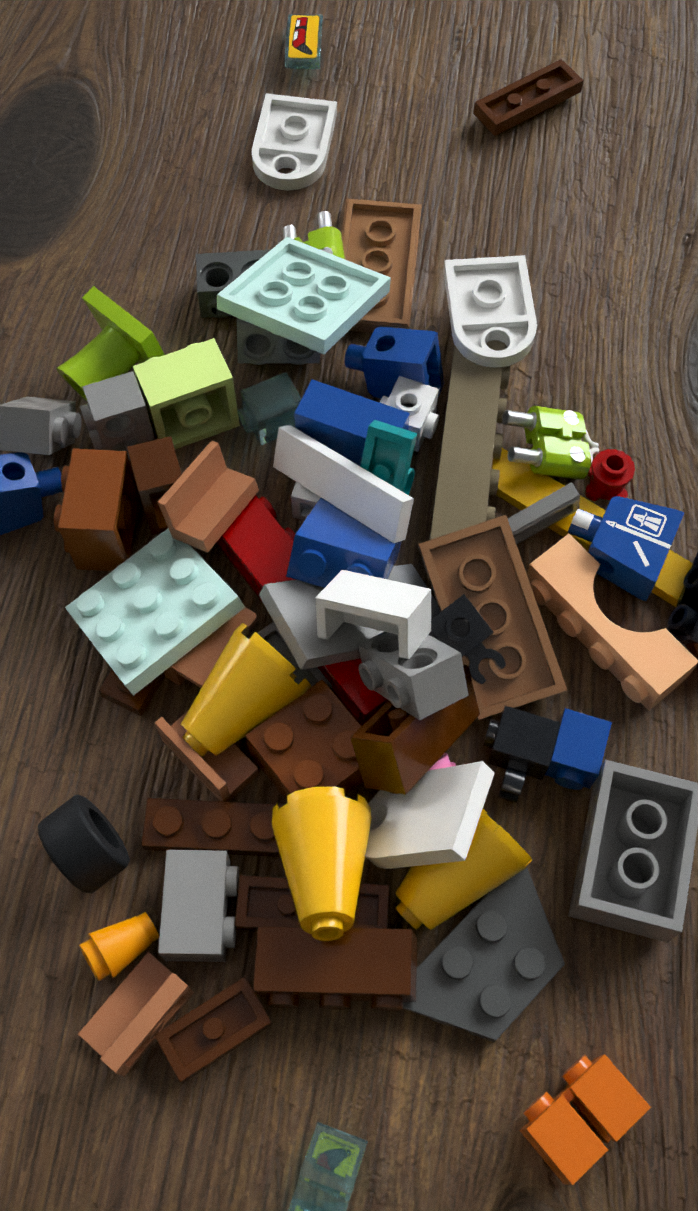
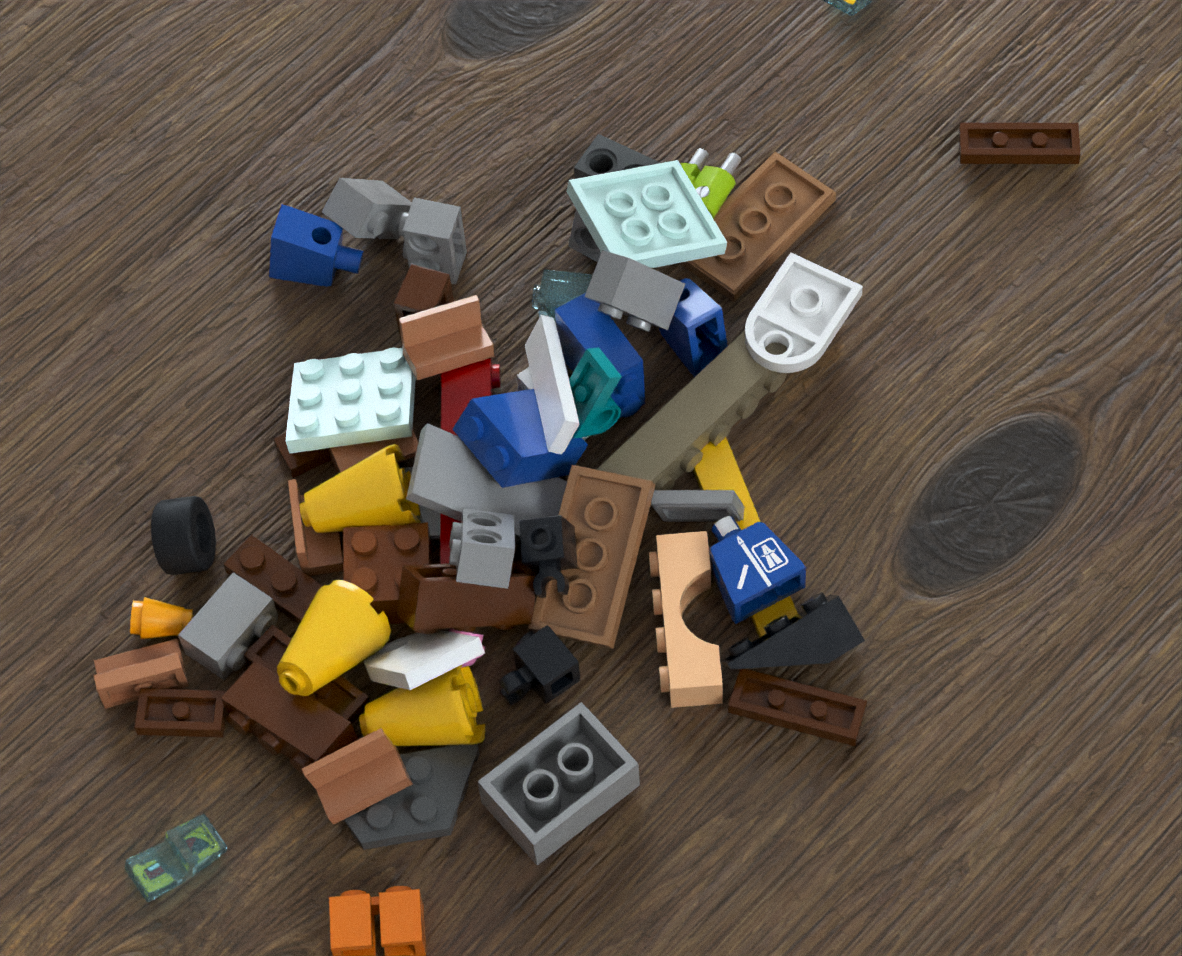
camera: 40 degrees right, 5 degrees down
(98, 509) = (360, 301): dark orange brick -> none
(114, 349) = (472, 180): lime plant -> none
(188, 393) = (498, 250): yellowish green brick -> none
(293, 136) = (778, 70): white tile -> none
(356, 356) = (635, 291): none -> light grey piece
(375, 605) = (492, 483): white panel -> none
(420, 402) = (667, 364): white brick -> none
(456, 980) = (358, 776): none -> nougat panel
(555, 442) = (768, 458): lime piece -> none
(578, 750) = (583, 683): blue brick -> none
(609, 475) = (793, 512): red brick -> none

